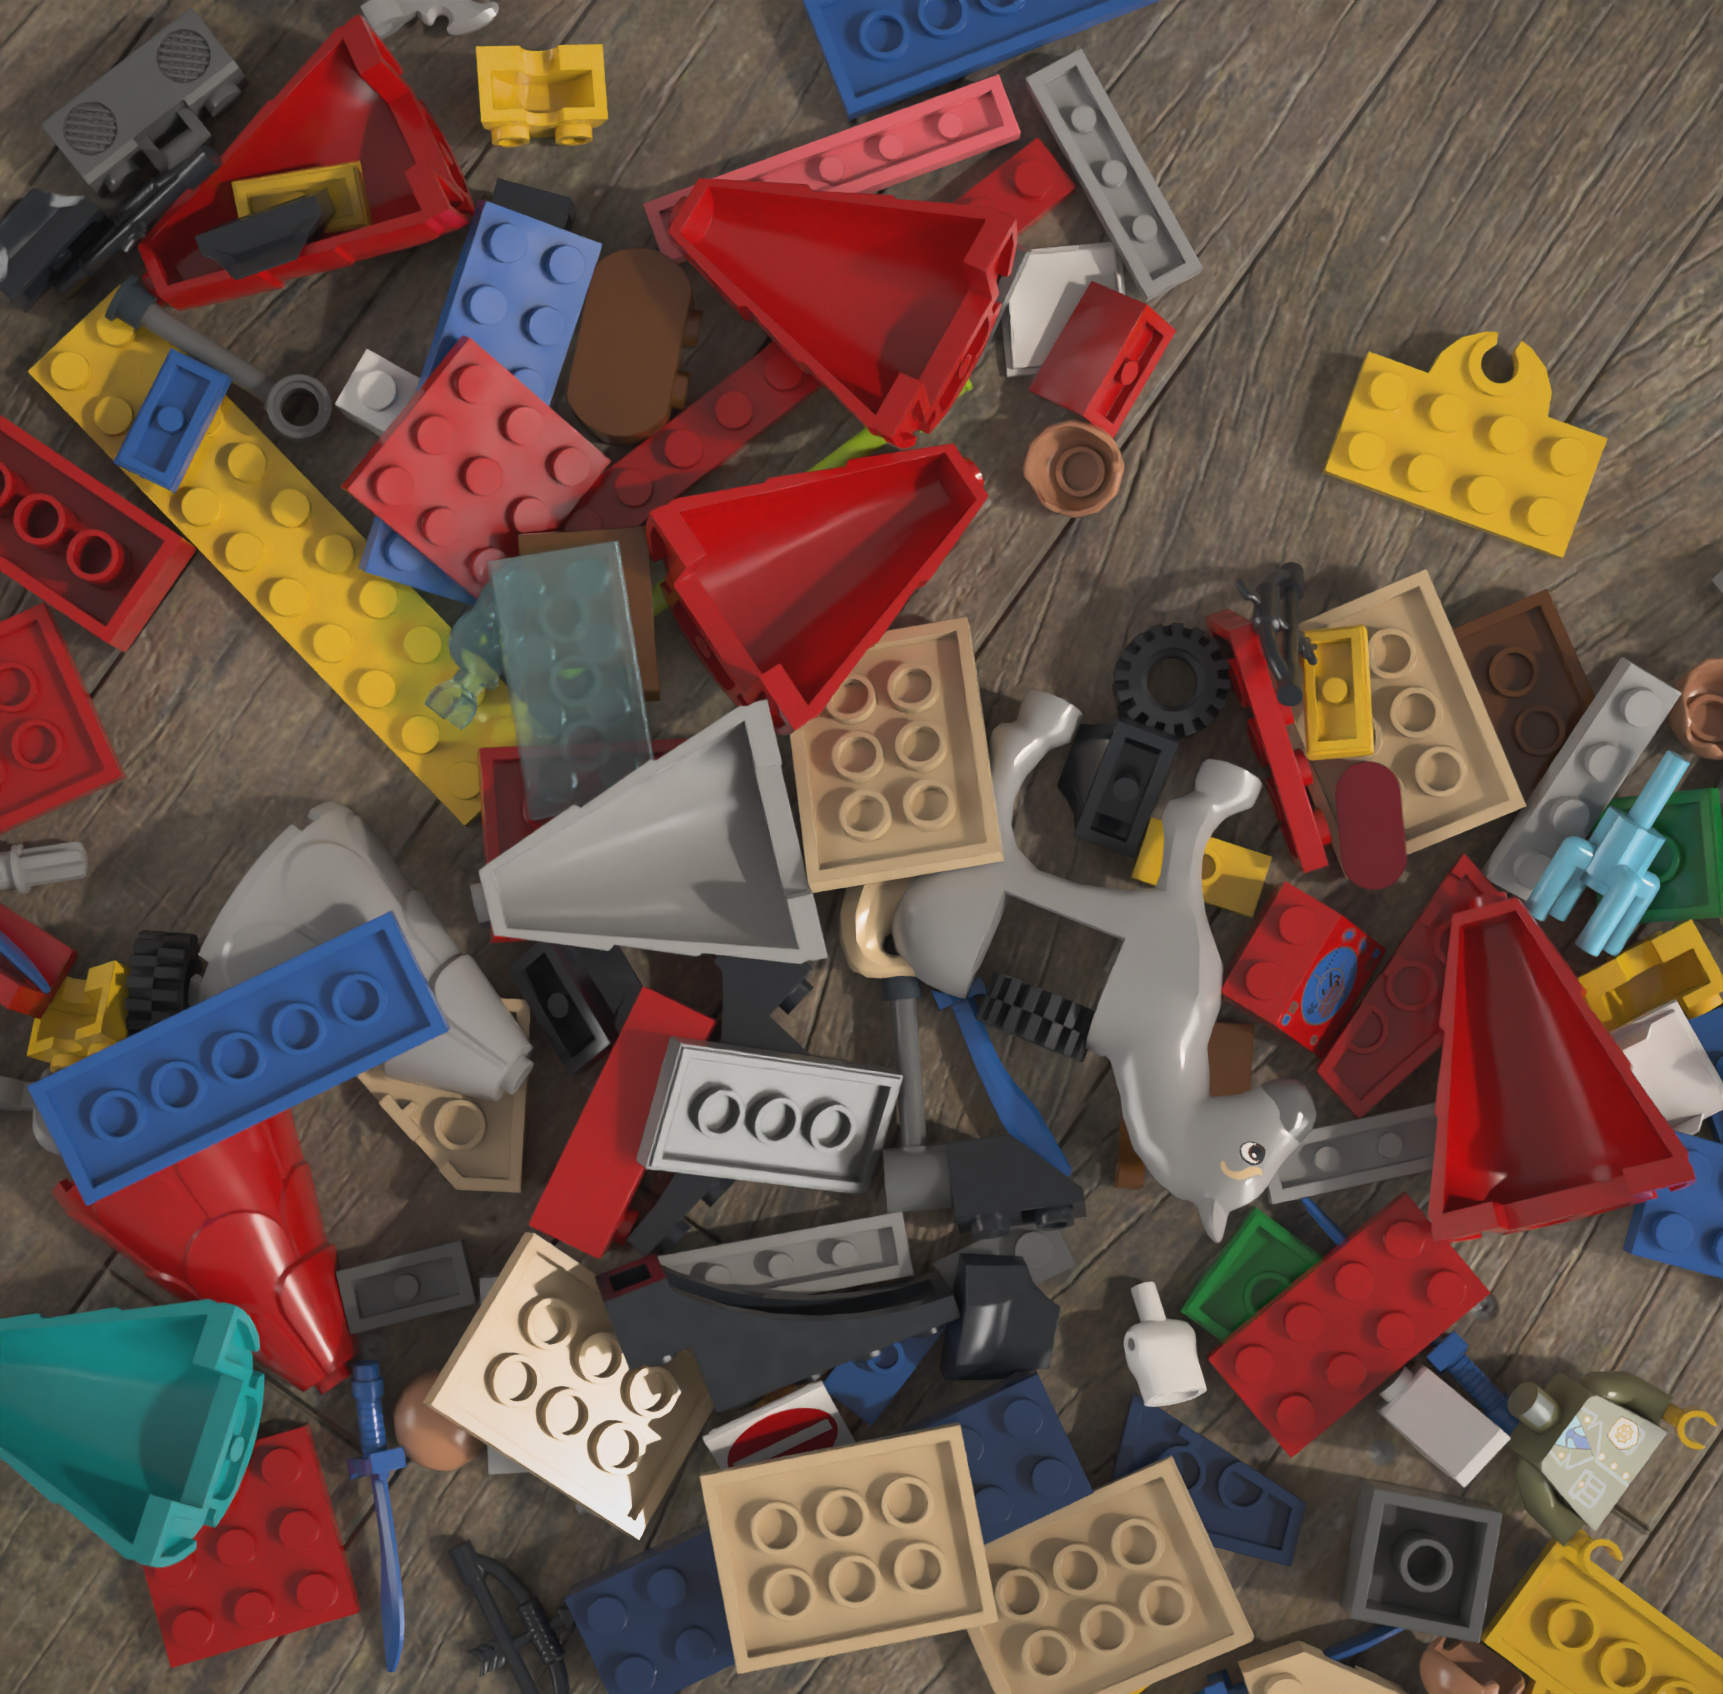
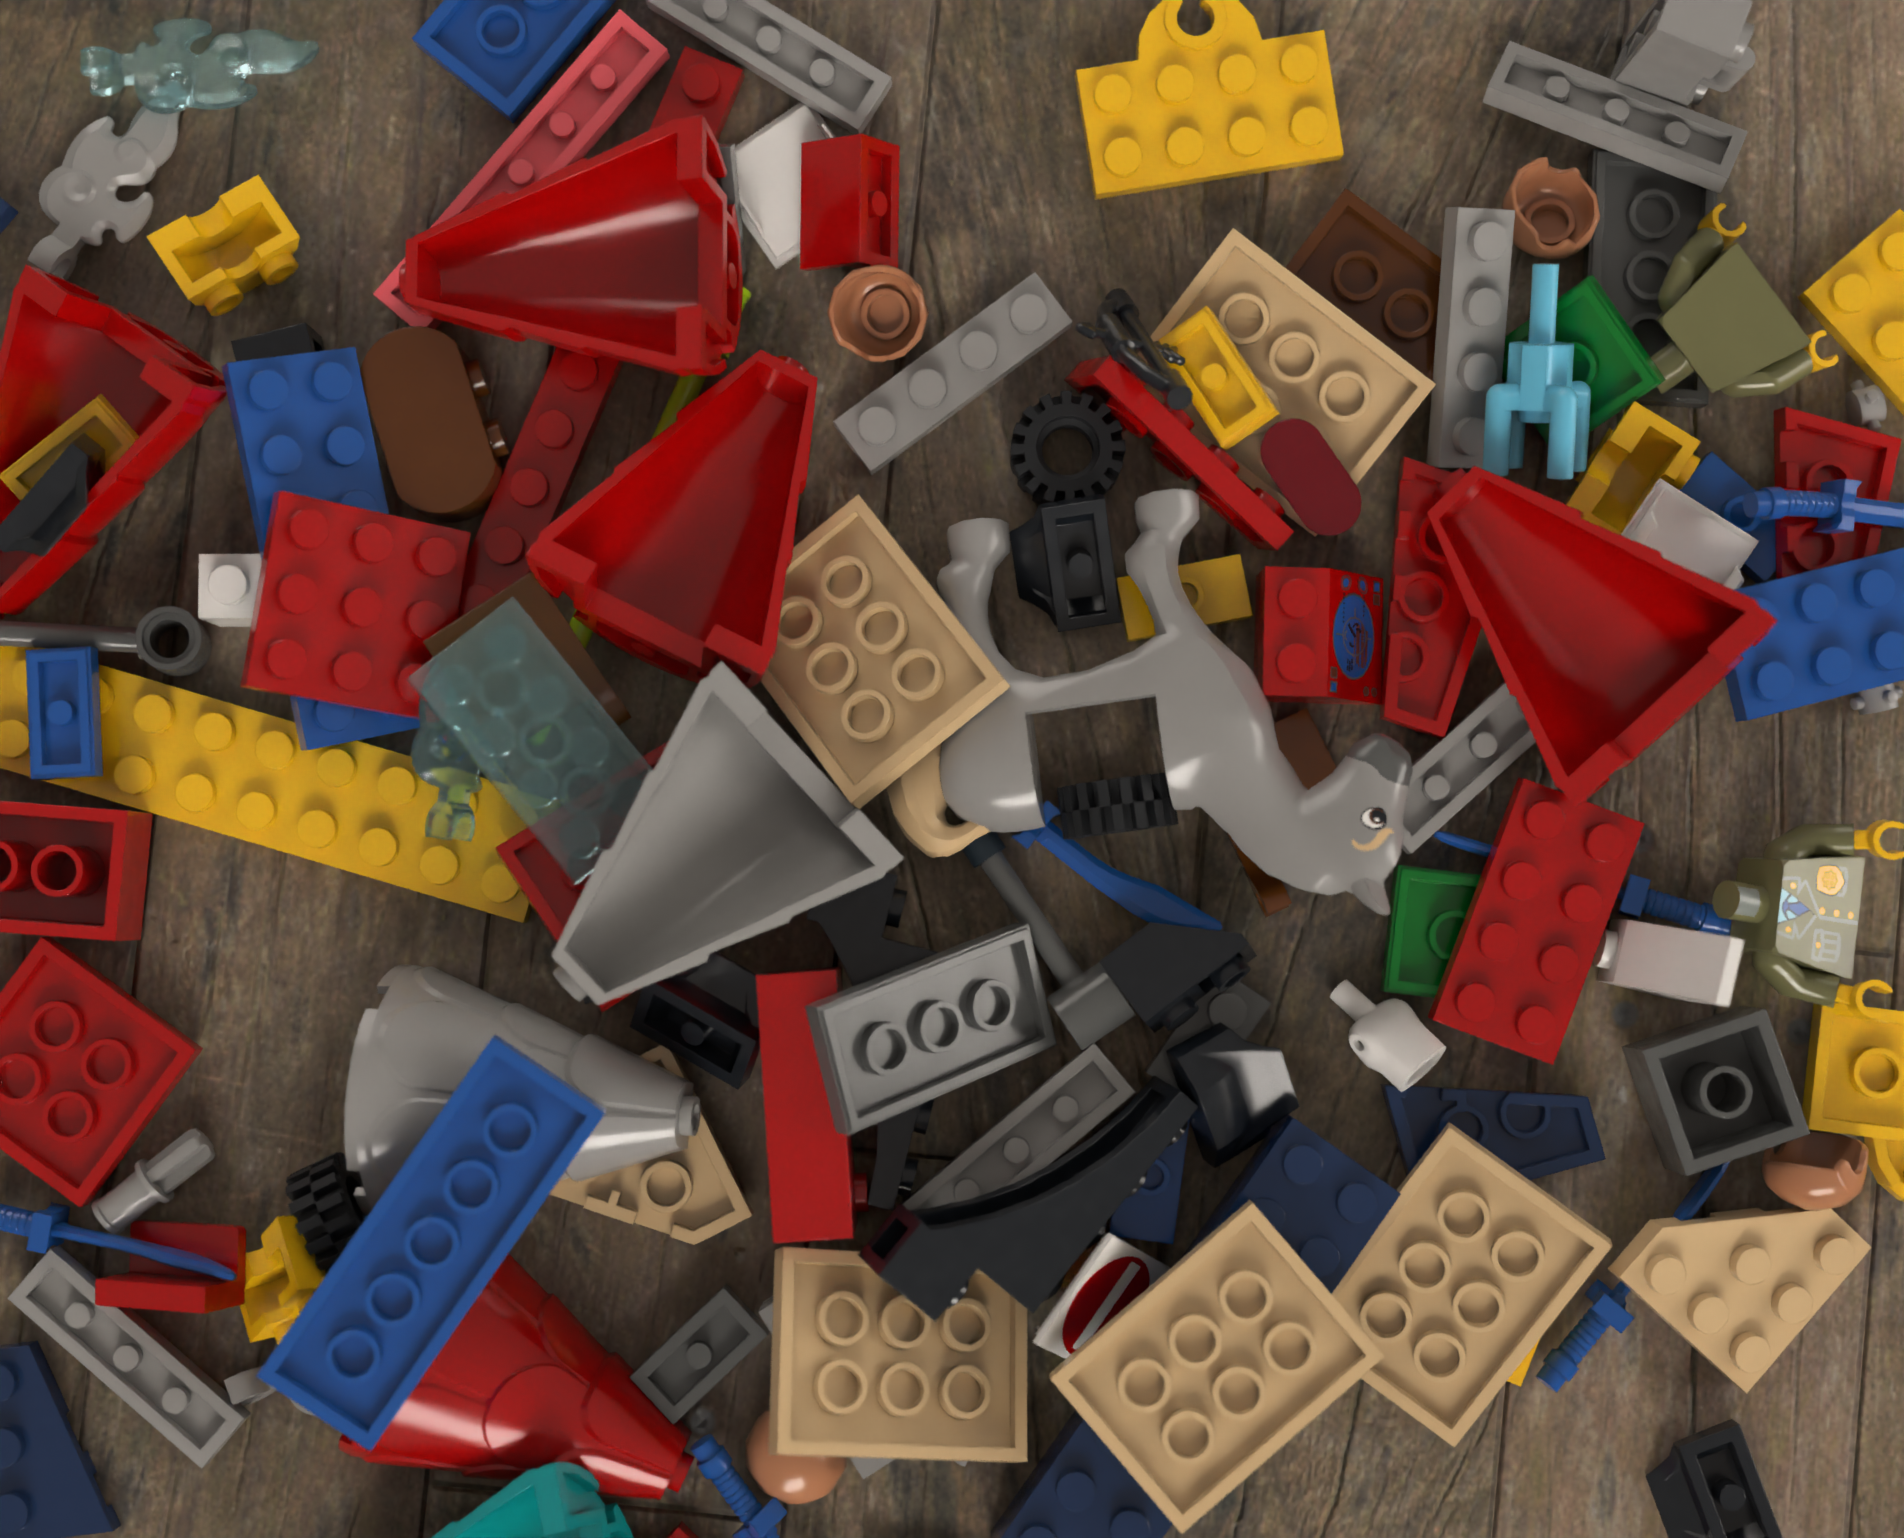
camera: 25 degrees left, 0 degrees up
(1110, 556) = (953, 373): none -> light grey plate

